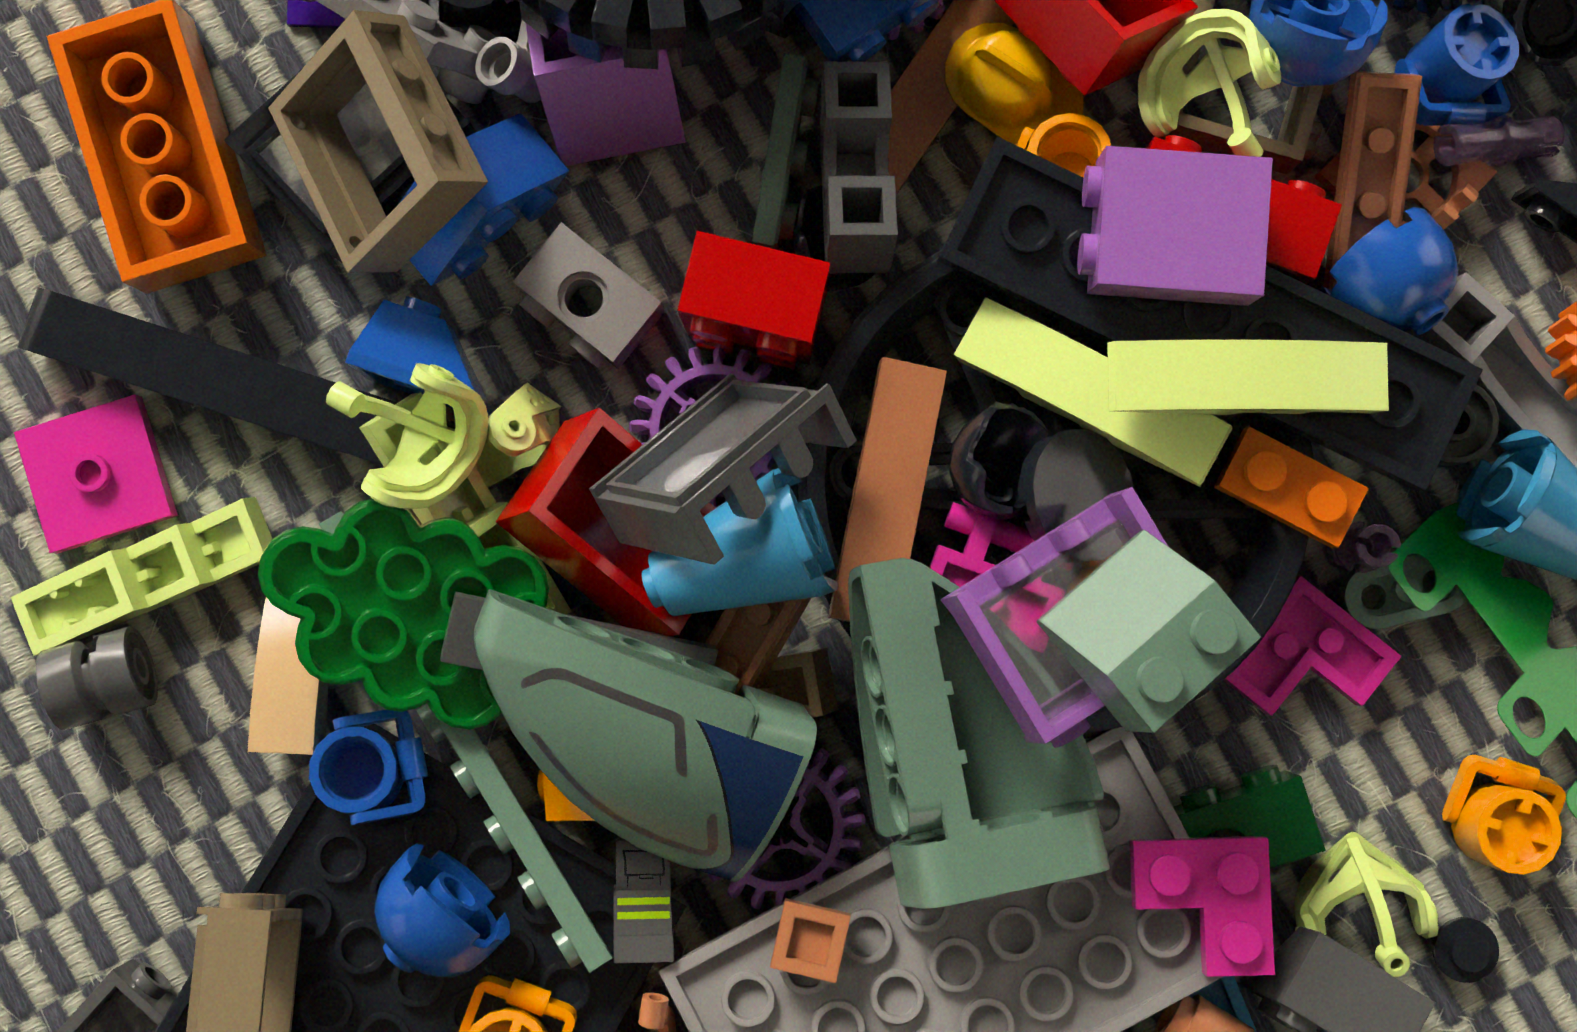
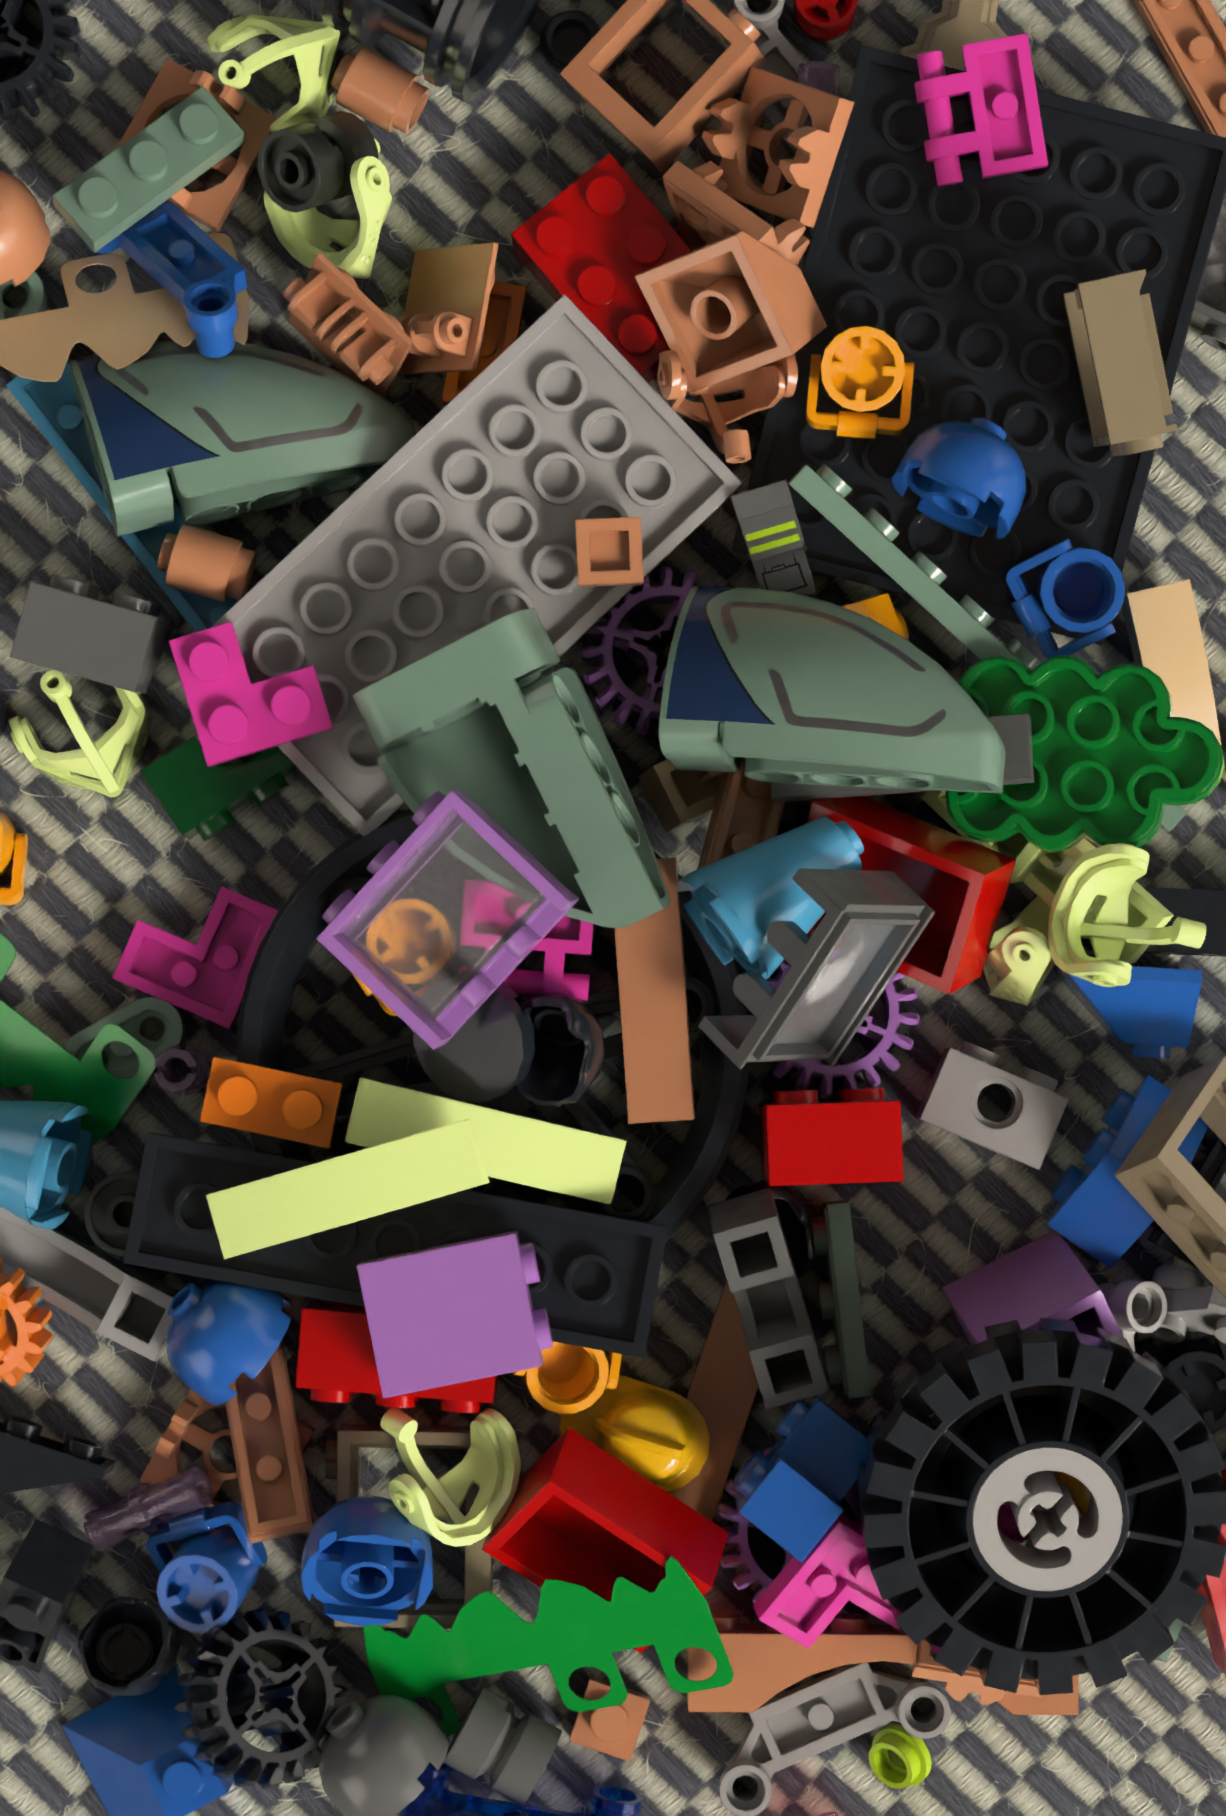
camera: 170 degrees right, 0 degrees up
(1147, 632) = (388, 917): sand green slope -> none

